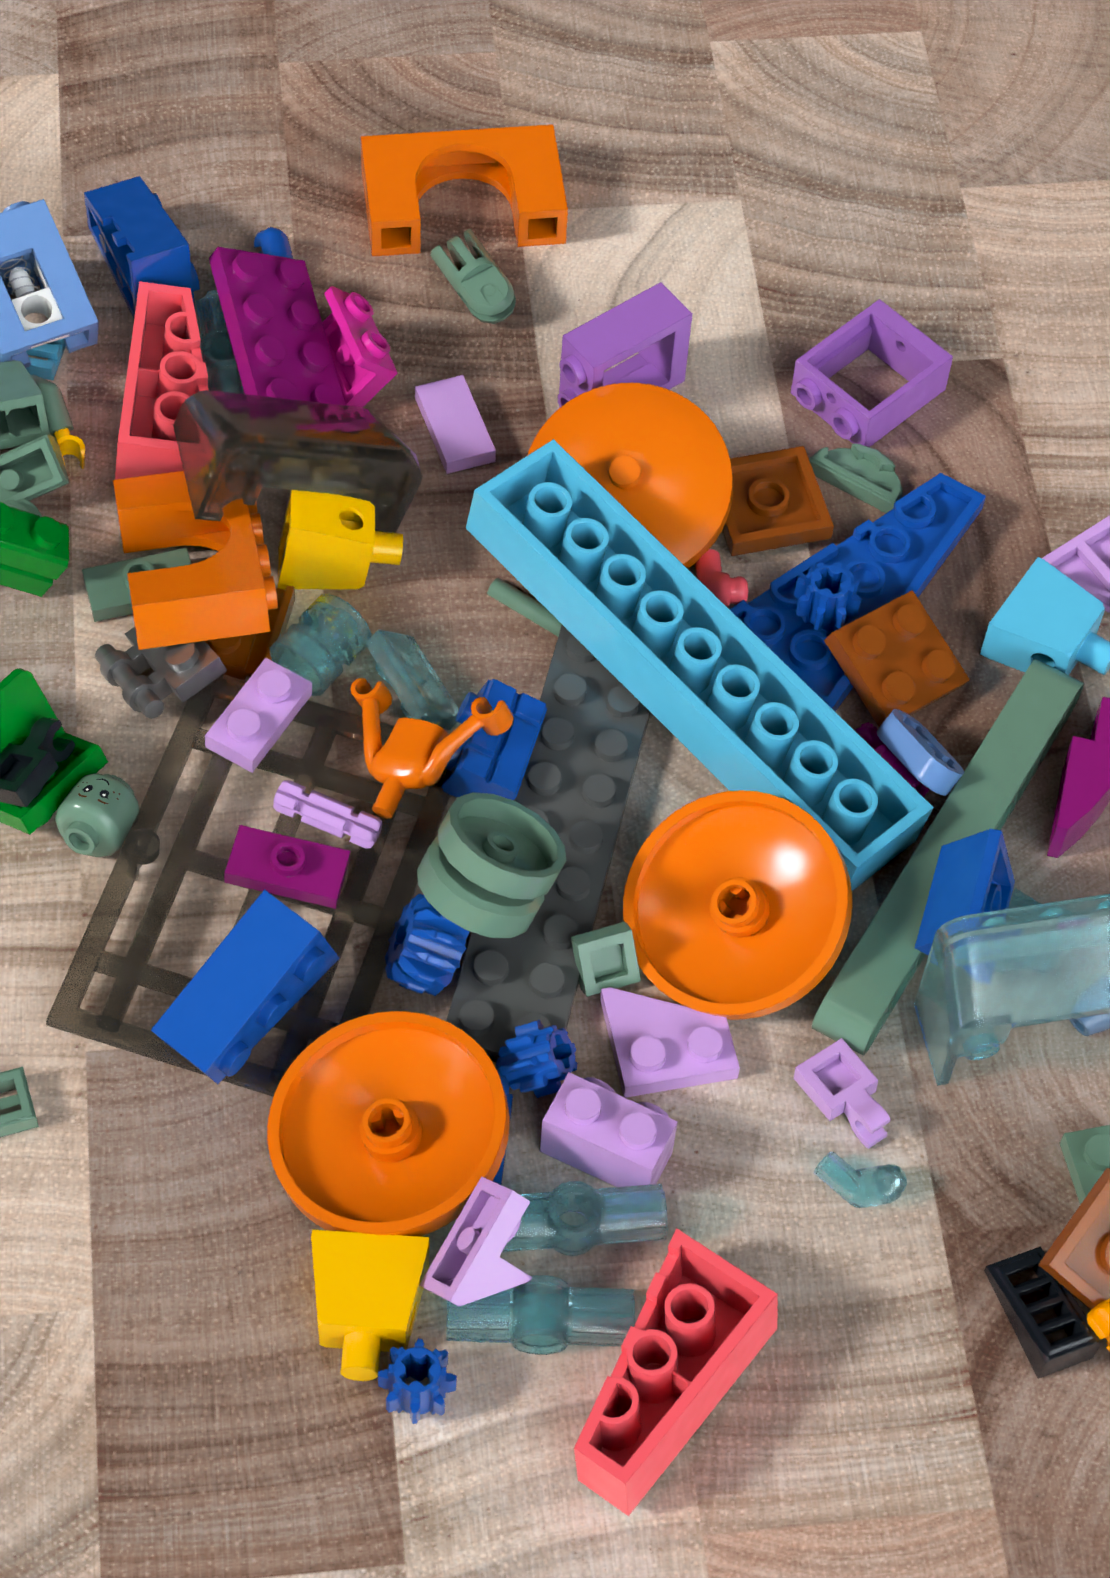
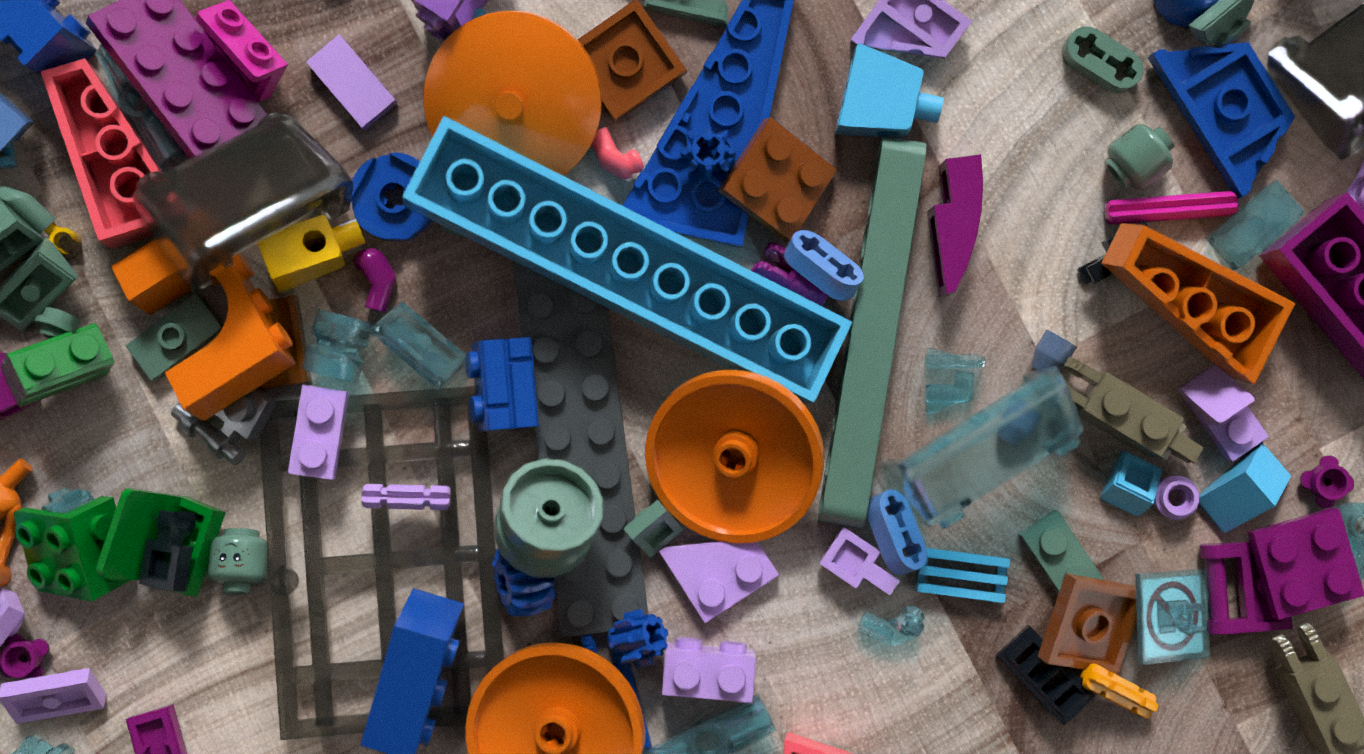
camera: 15 degrees left, 30 degrees up
(287, 866) = (395, 552): magenta plate -> none
(399, 602) = (380, 276): none -> magenta arm
(416, 748) = (448, 422): orange piece -> none
(431, 556) = (371, 206): none -> blue plate
(905, 1069) = (896, 532): none -> medium blue beam
(968, 880) = (901, 395): blue slope -> none
(977, 1148) = (999, 579): none -> medium azure tile

